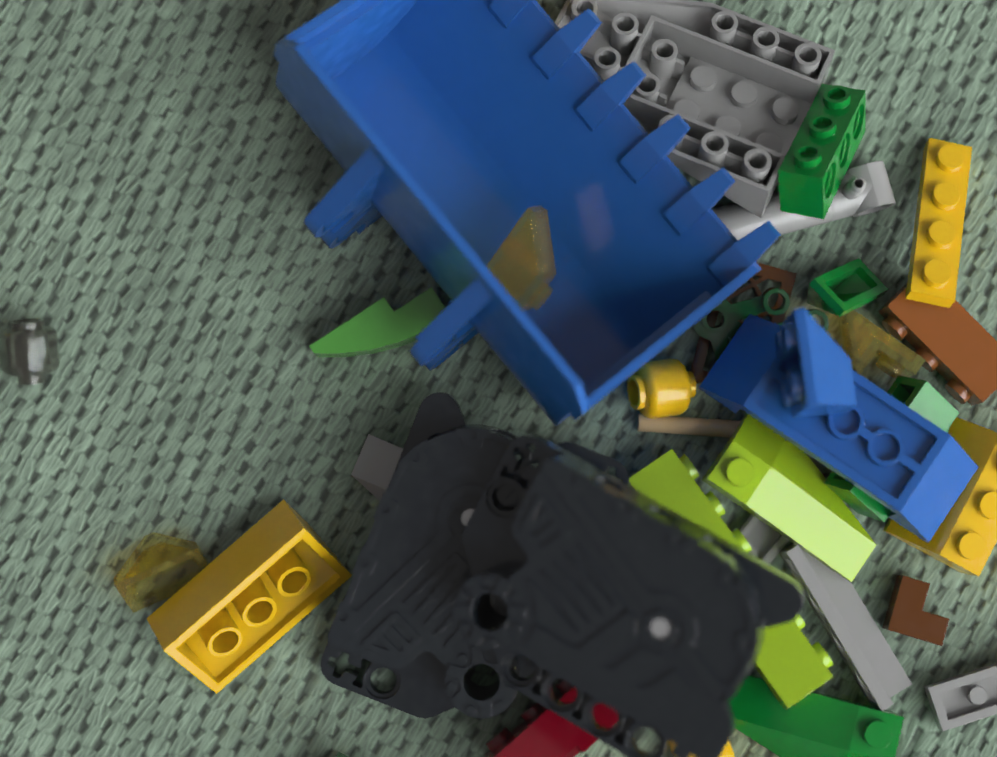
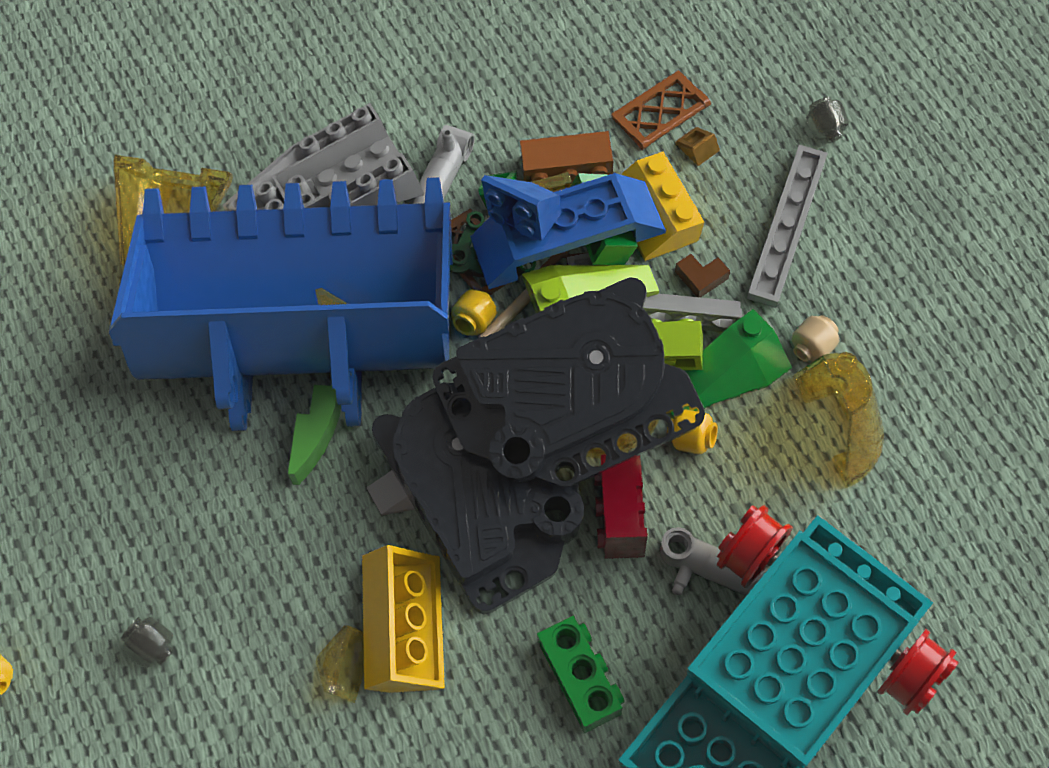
camera: 50 degrees left, 20 degrees down
(822, 151) = (415, 141): green brick -> none
(939, 223) = (502, 120): yellow plate -> none

